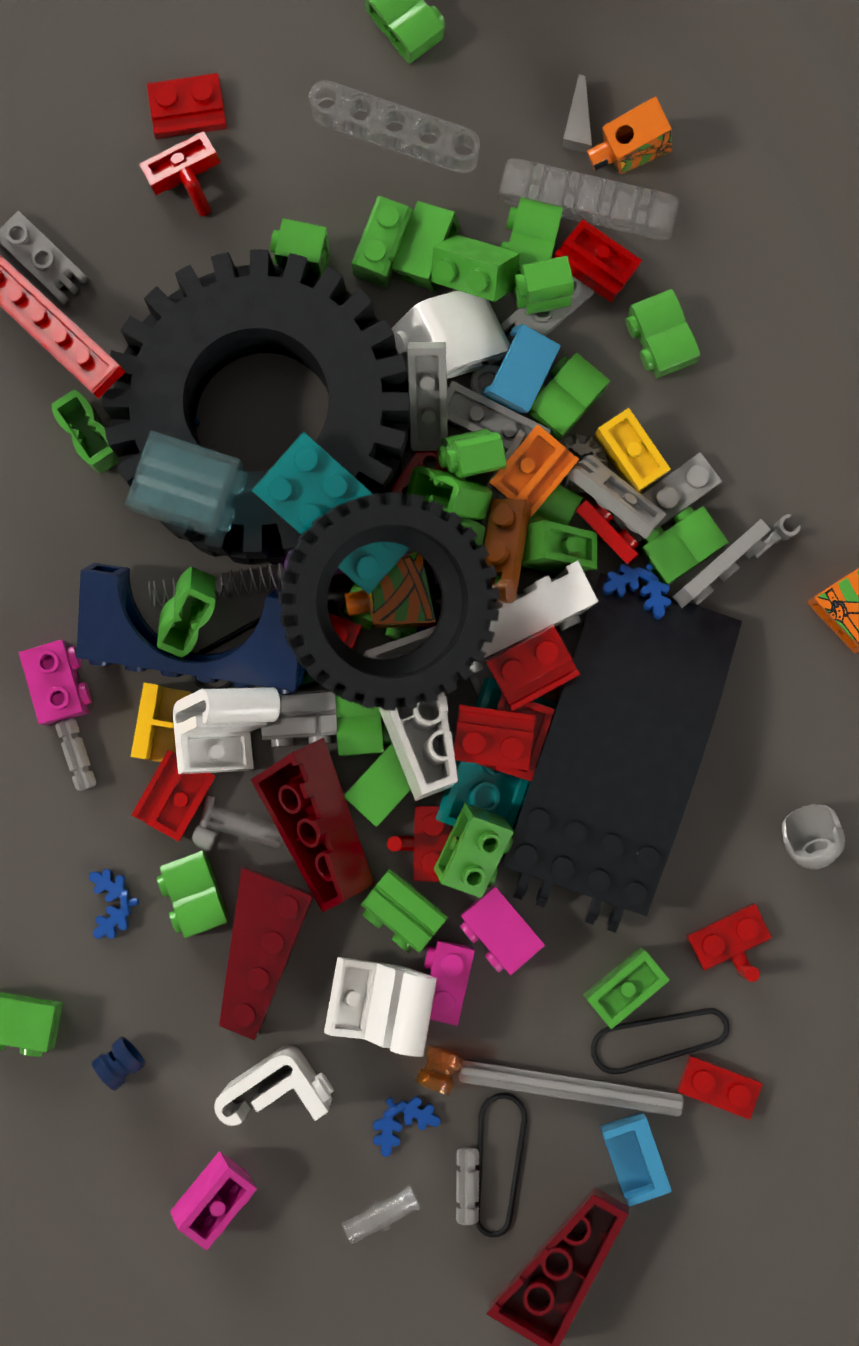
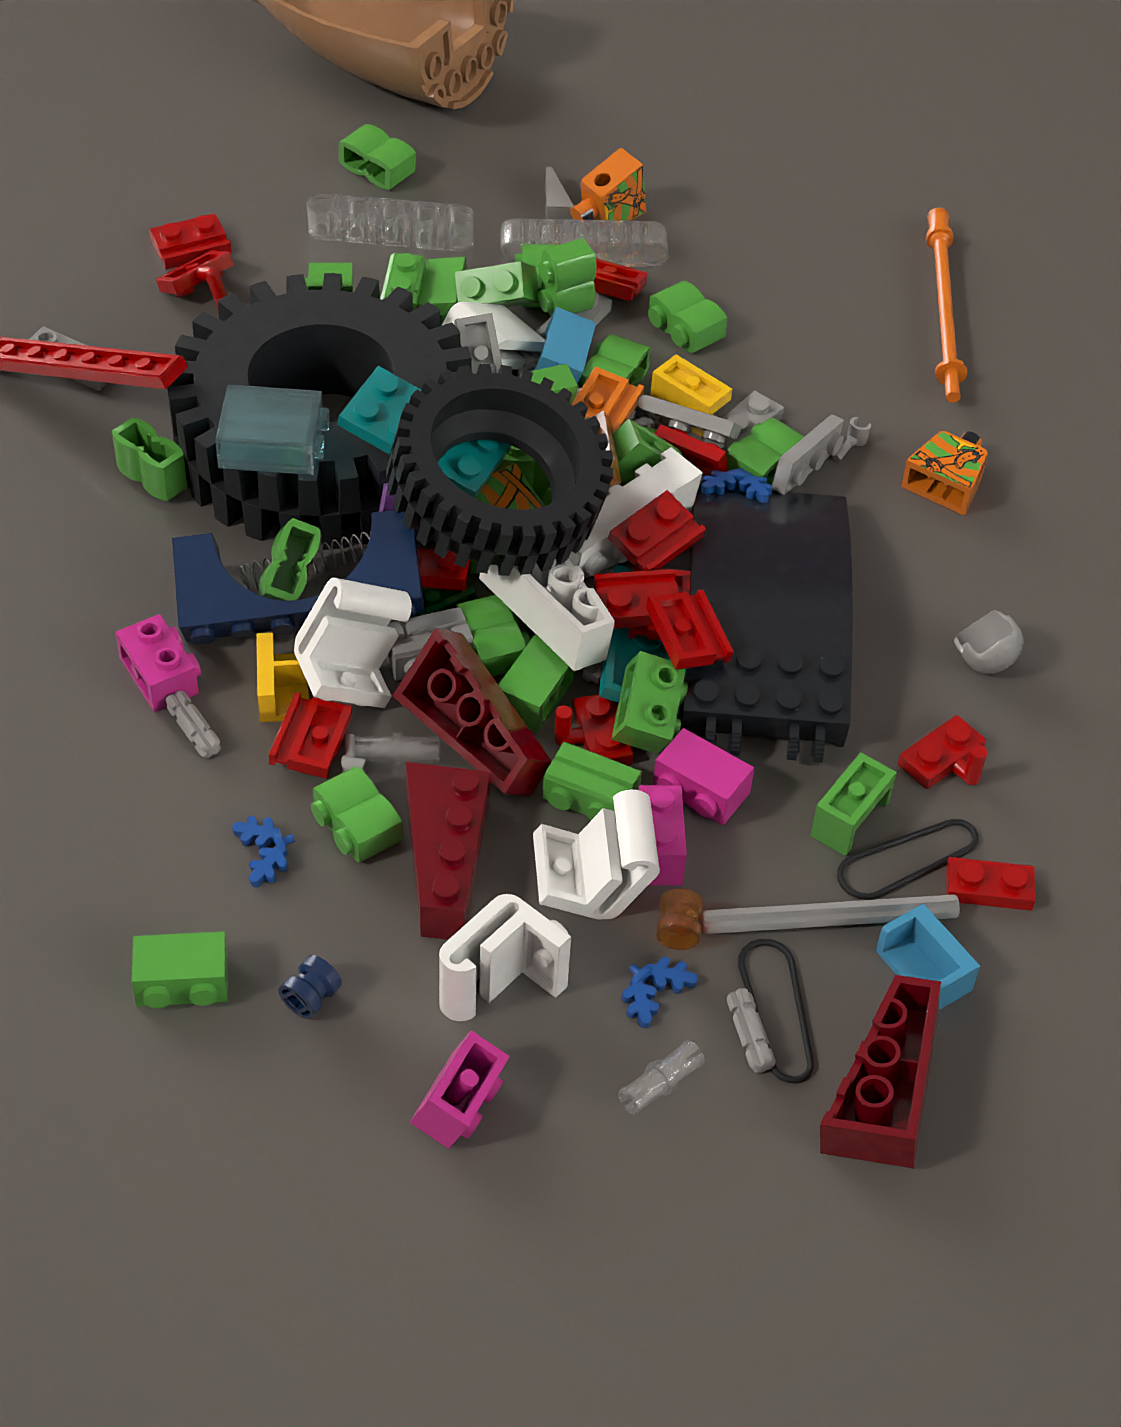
camera: 20 degrees left, 35 degrees down
(525, 800) = (689, 629): none -> red plate

